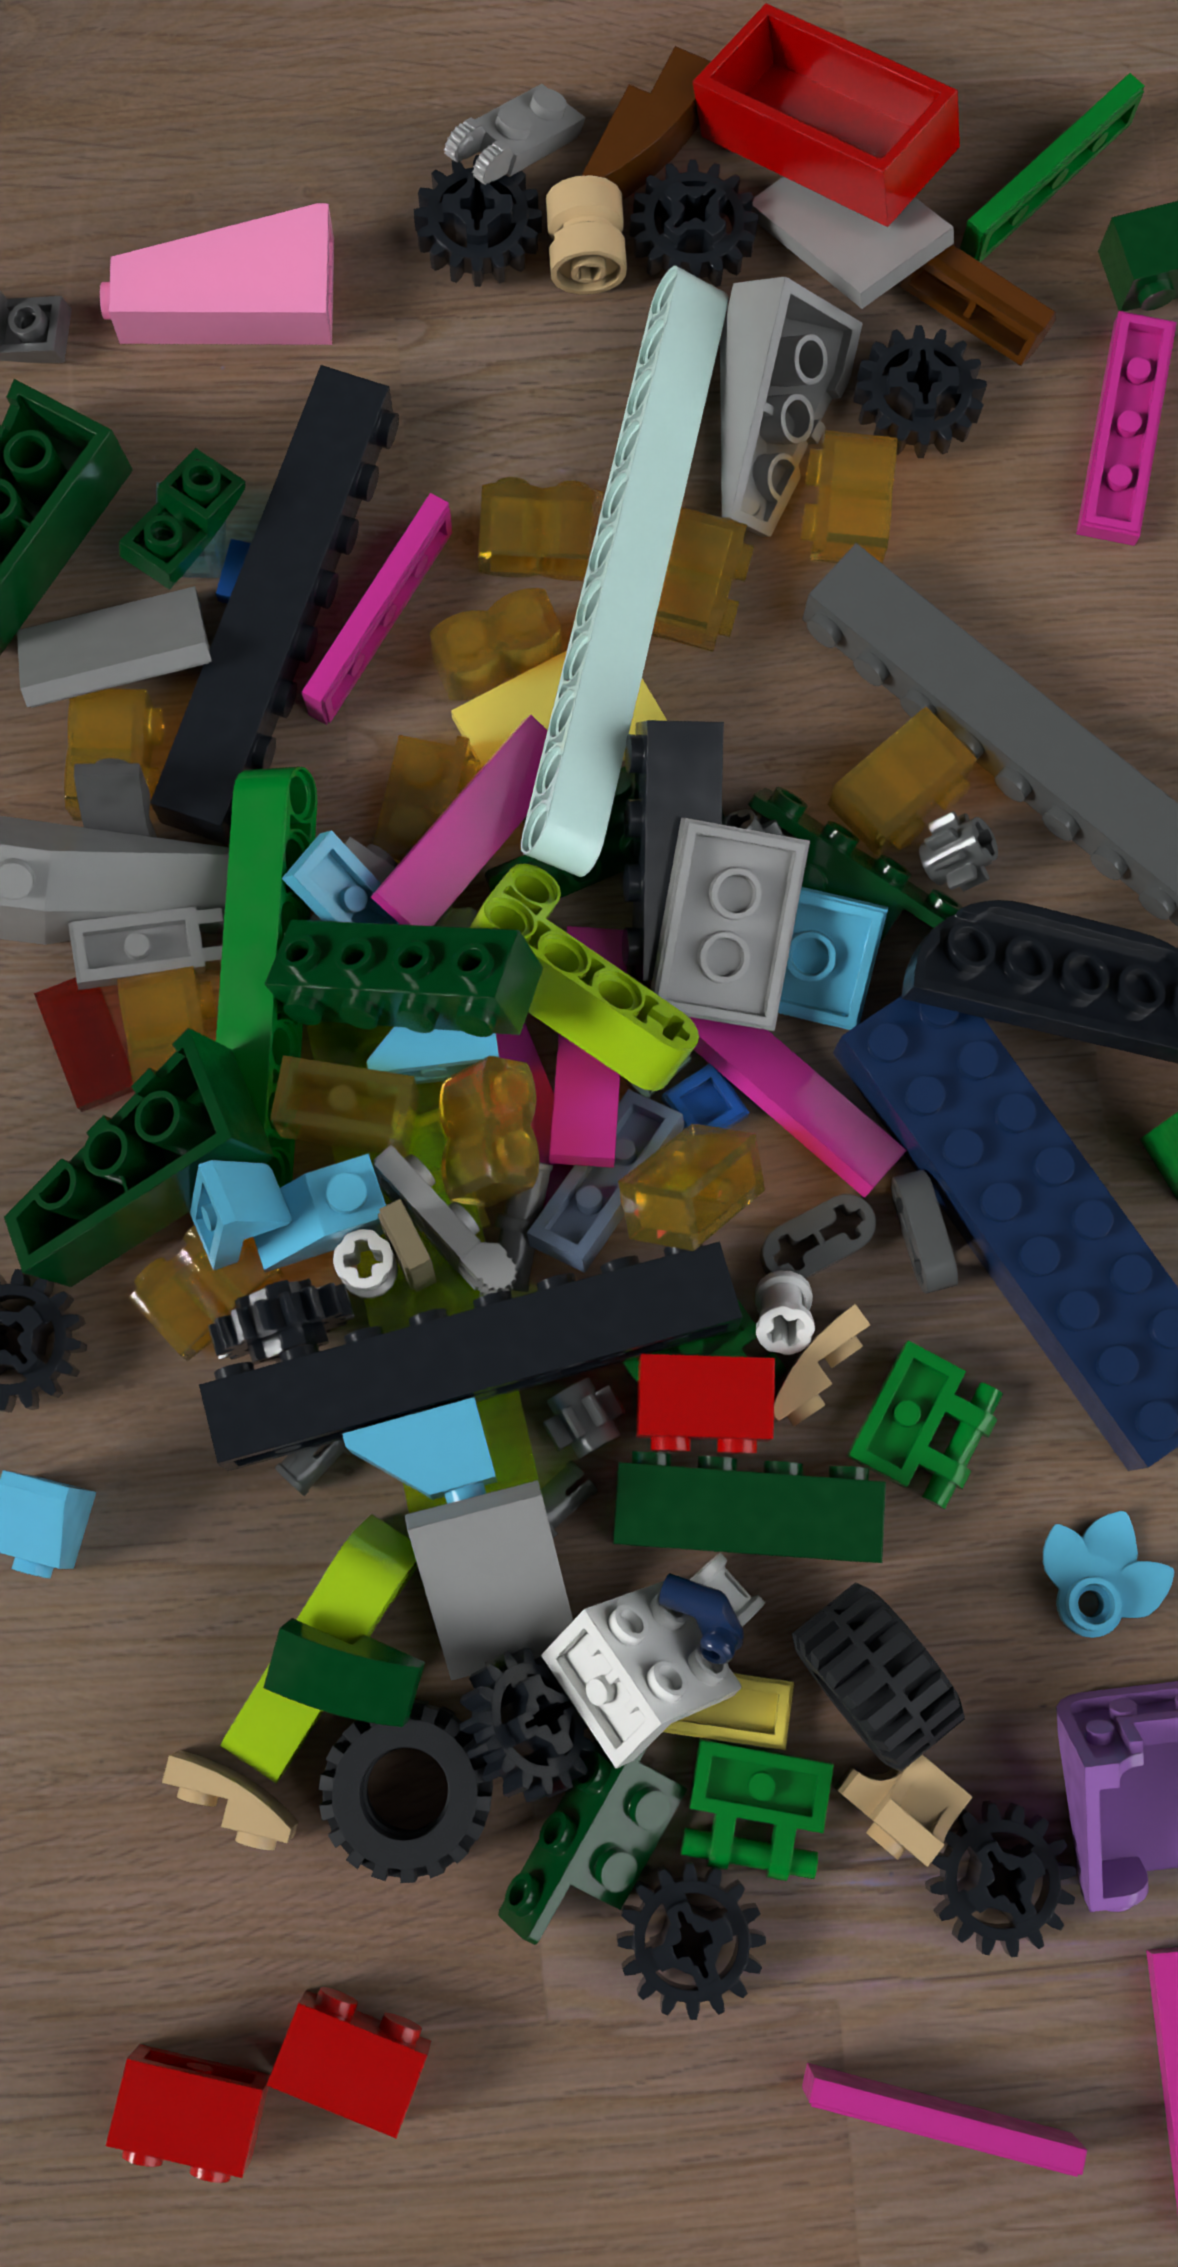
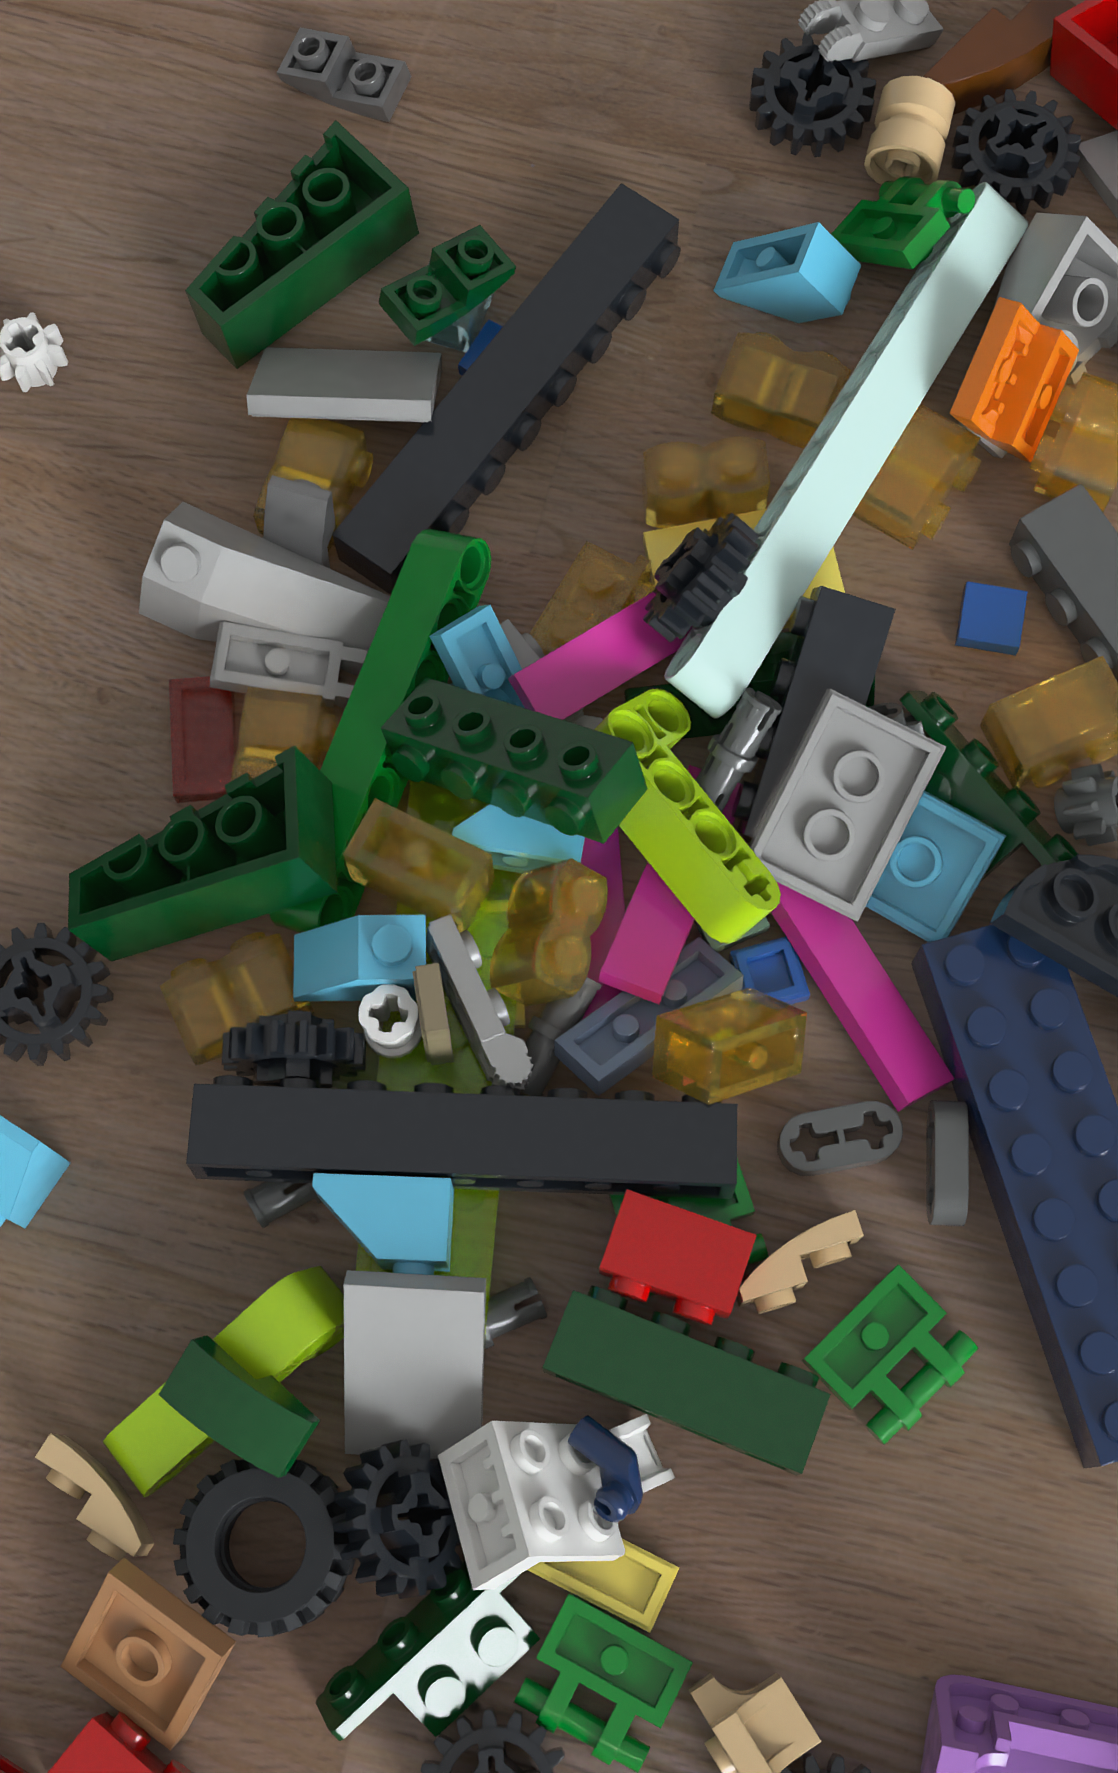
camera: 25 degrees right, 5 degrees down
(229, 285) = (562, 92): bright pink slope -> none
(235, 1204) = (284, 925): medium azure slope -> none
(329, 1926) = (147, 1653): none -> medium nougat plate
(378, 610) = (603, 420): dark pink tile -> none
(513, 410) = (790, 274): none -> medium azure slope
(528, 745) = (701, 577): none -> black gear
(583, 1417) = (554, 1238): dark grey gear -> none
(606, 331) = (903, 221): none -> green plate
(610, 899) = (735, 748): none -> dark grey pin
(763, 458) = (1014, 380): none -> orange slope
(784, 1316) = (783, 1197): white bush -> none
(808, 697) = (991, 618): none -> blue tile
(879, 1676) = (763, 1586): black tyre -> none
(1108, 1567) = (1033, 1556): medium azure plate -> none

